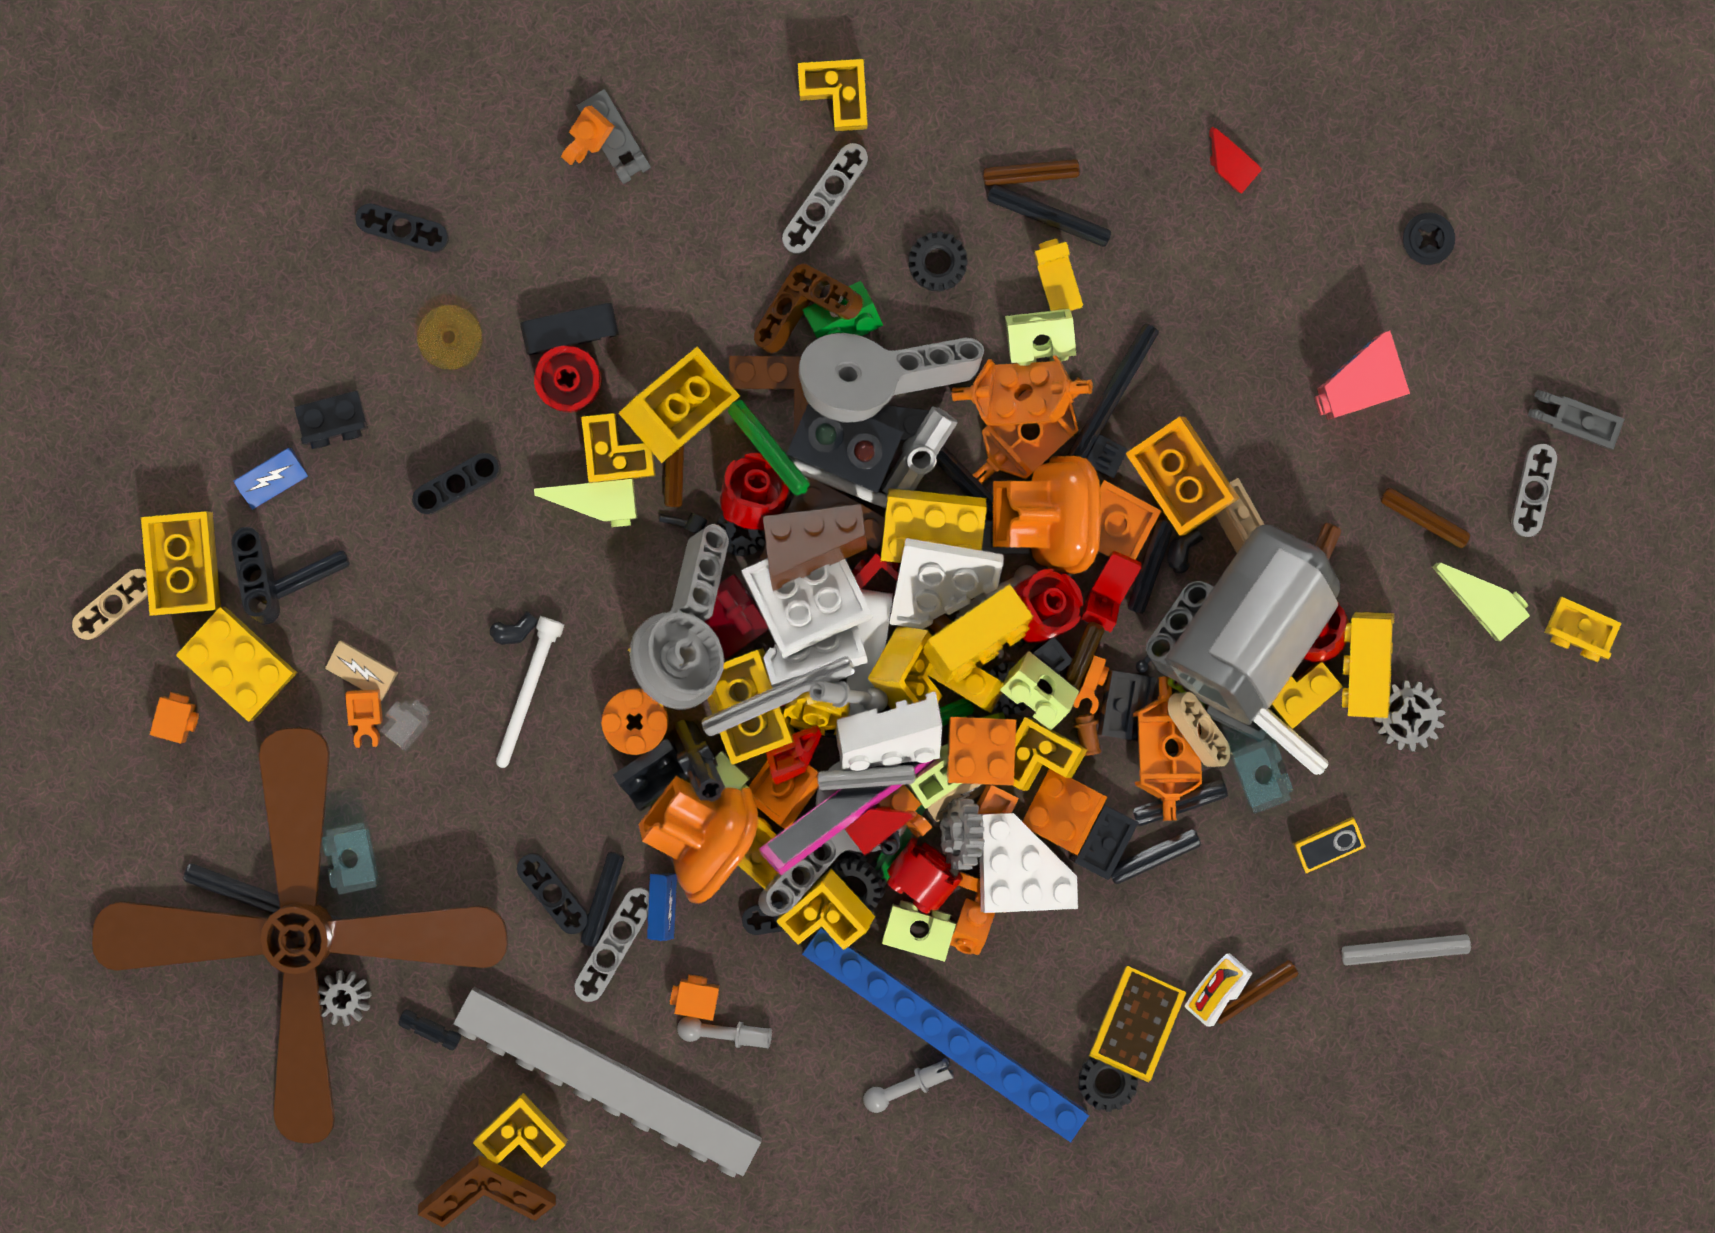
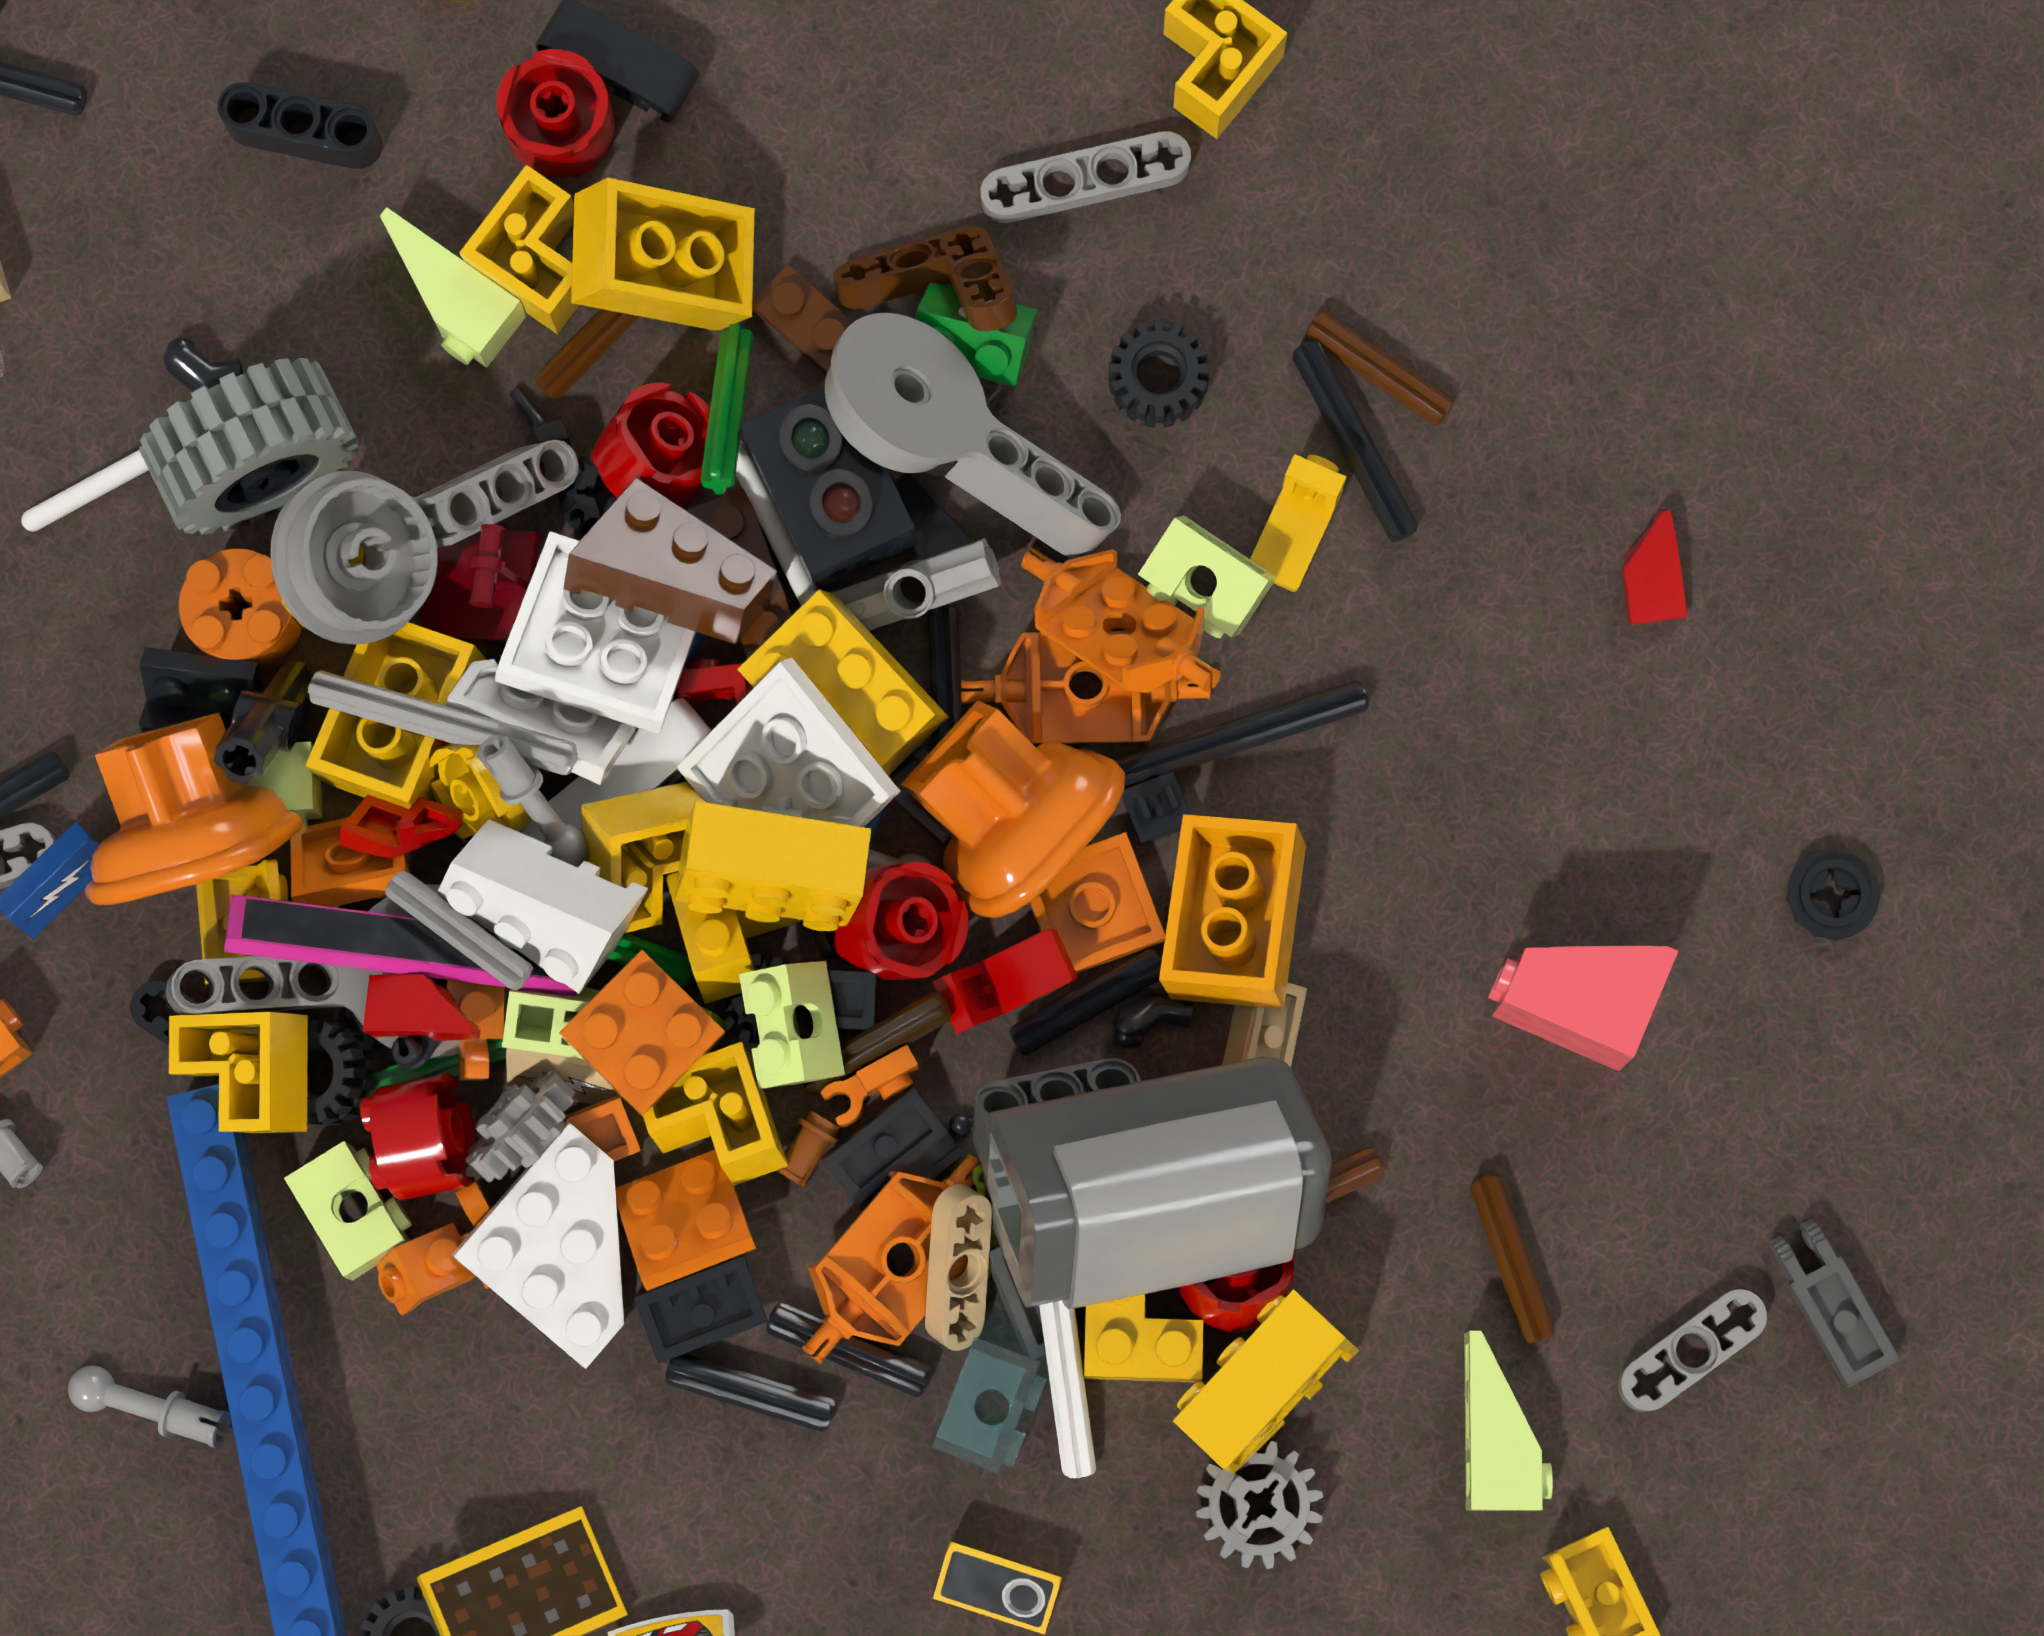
camera: 40 degrees right, 10 degrees down
(580, 650) = (247, 445): none -> light grey wheel

